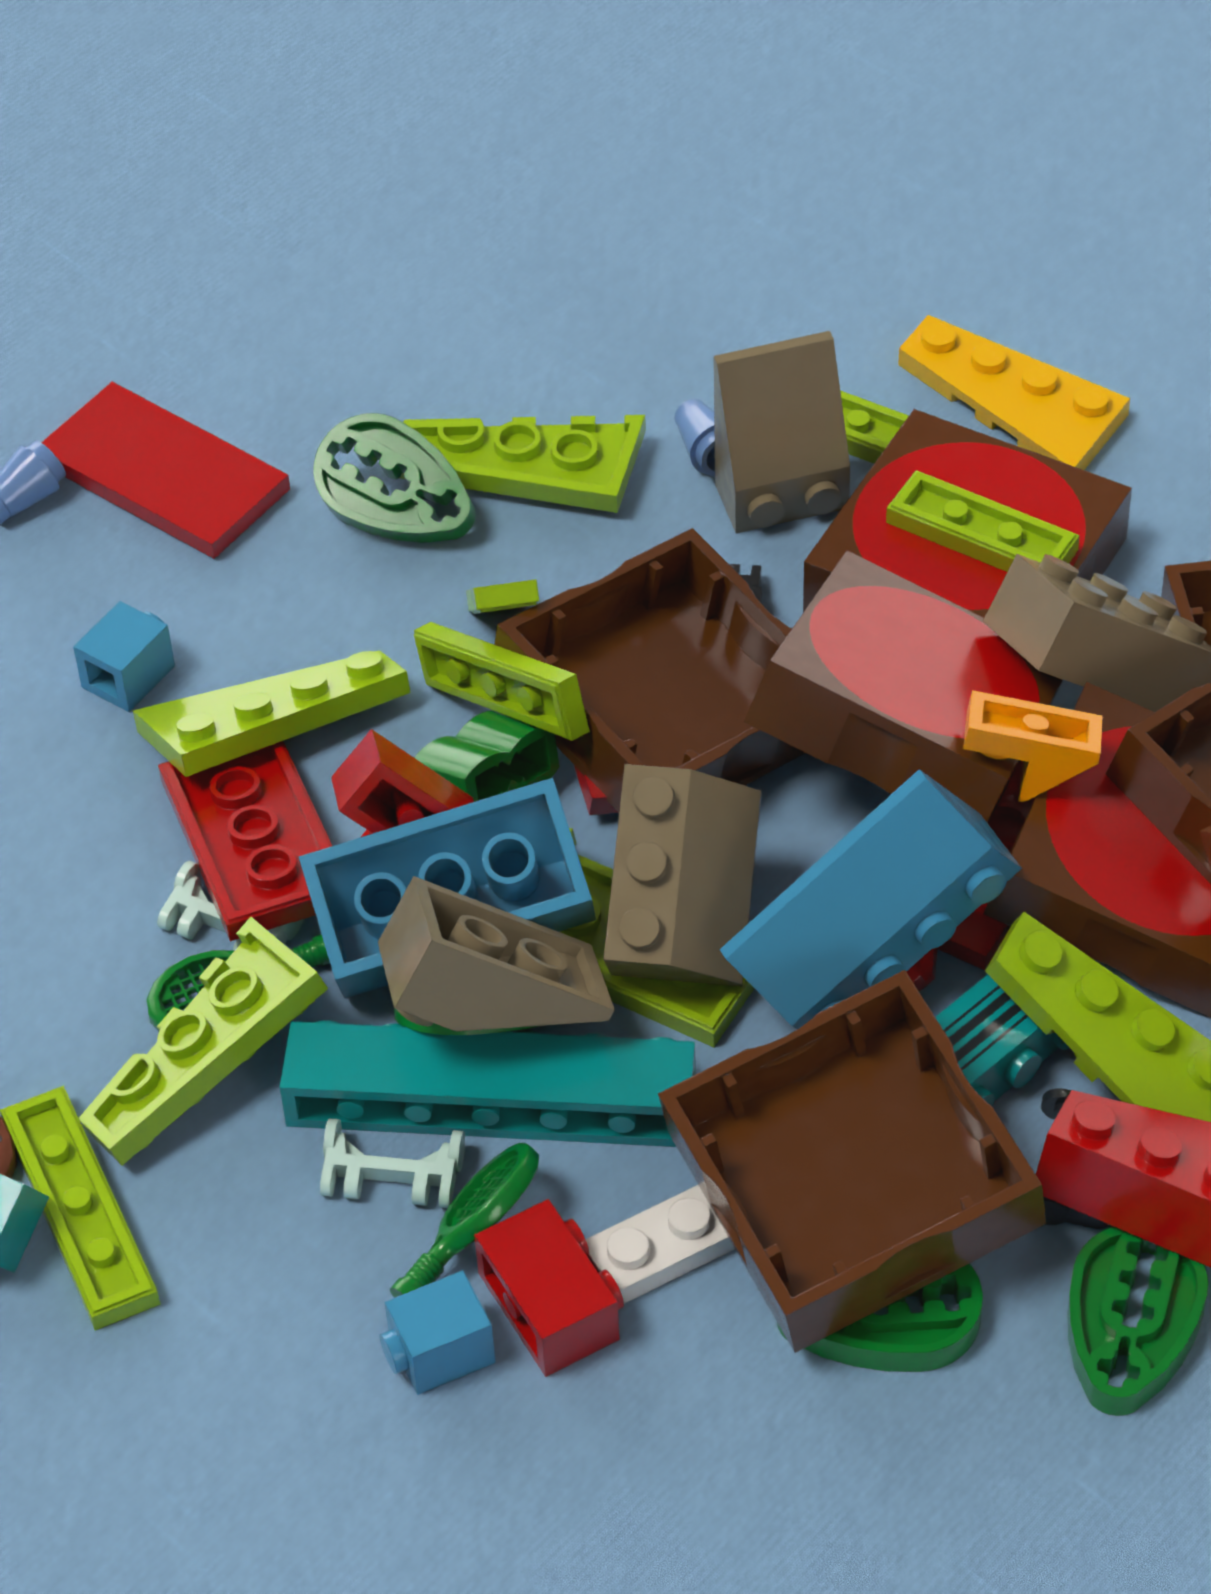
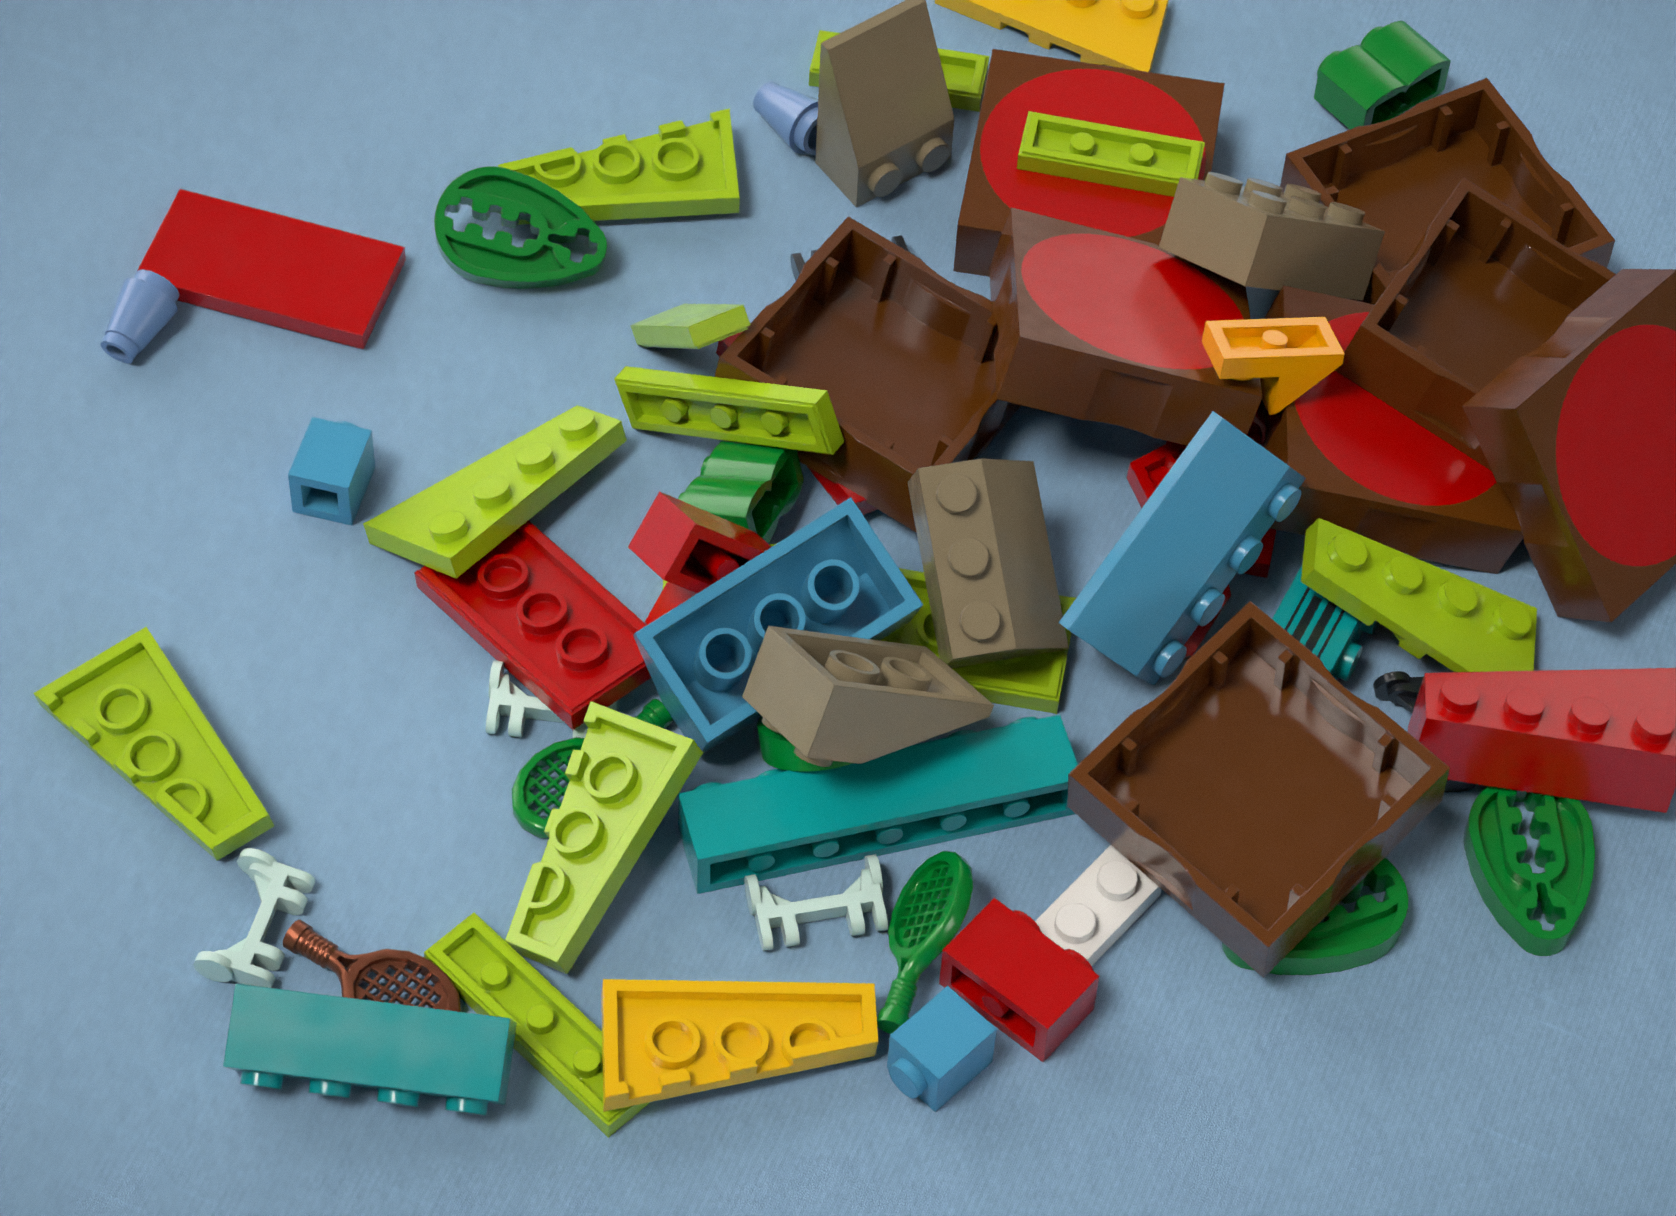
camera: 25 degrees left, 5 degrees up
(229, 1257) = (715, 1034): none -> yellow wing

